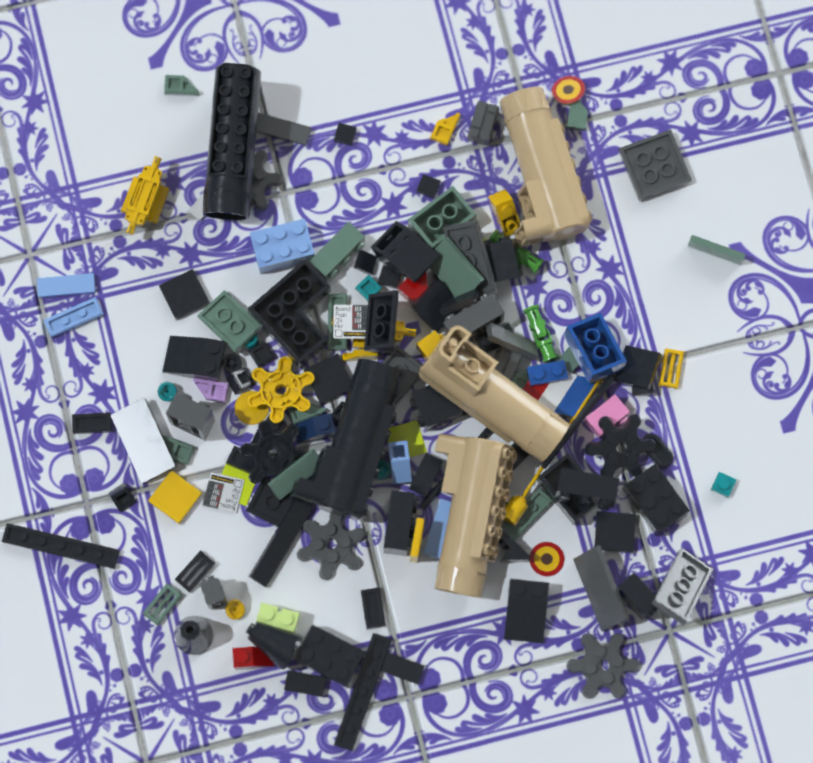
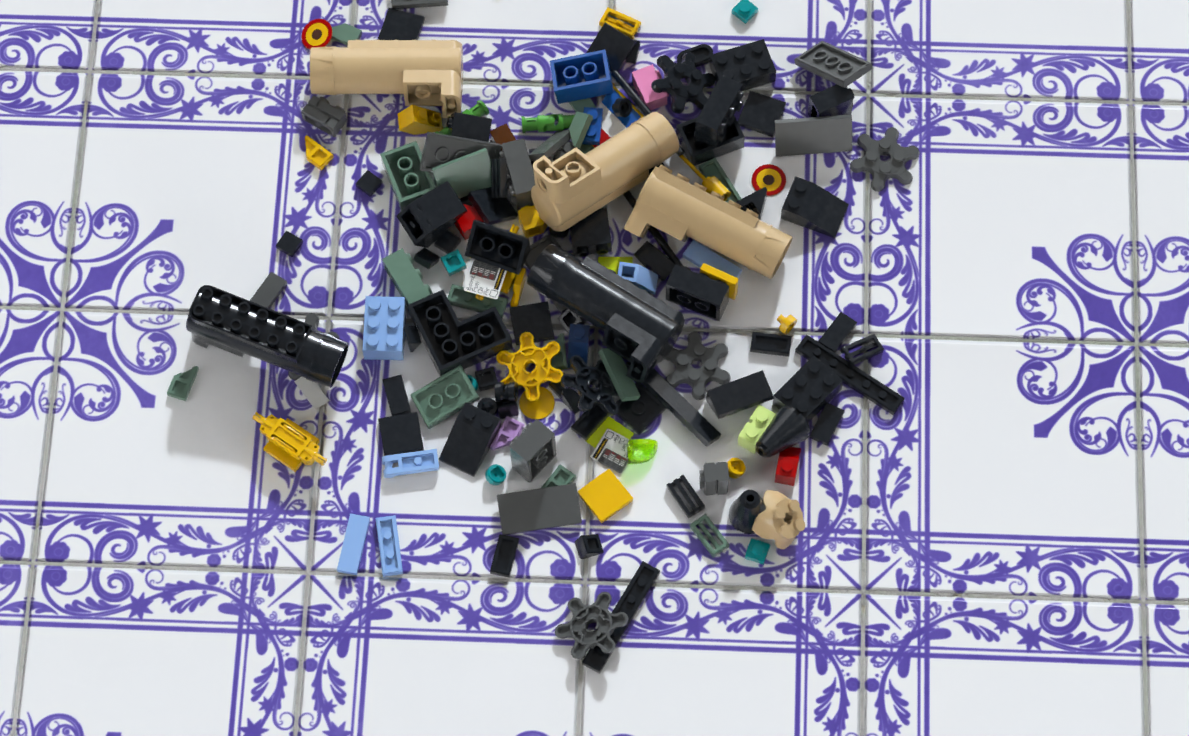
camera: 70 degrees left, 10 degrees down
(39, 509) = (585, 615): none -> dark grey plate
(157, 312) = (410, 463): none -> light blue plate
(158, 653) = (757, 551): none -> teal plate
(189, 666) = (780, 520): none -> tan brick
(221, 278) = (396, 395): none -> black tile
(227, 518) = (641, 450): none -> clear neon green brick
(247, 375) = (506, 391): none -> black wheel
(278, 273) = (412, 337): none -> black slope
(303, 593) = (739, 395): none -> black slope
(378, 685) = (849, 356): none -> black tile
(395, 617) = (787, 323): none -> yellow tile
(509, 295) = (501, 135): none -> reddish brown brick
(537, 361) = (579, 128): none -> sand green tile
(573, 396) = (622, 107): none -> black tile
(598, 165) = (401, 26): none -> black tile

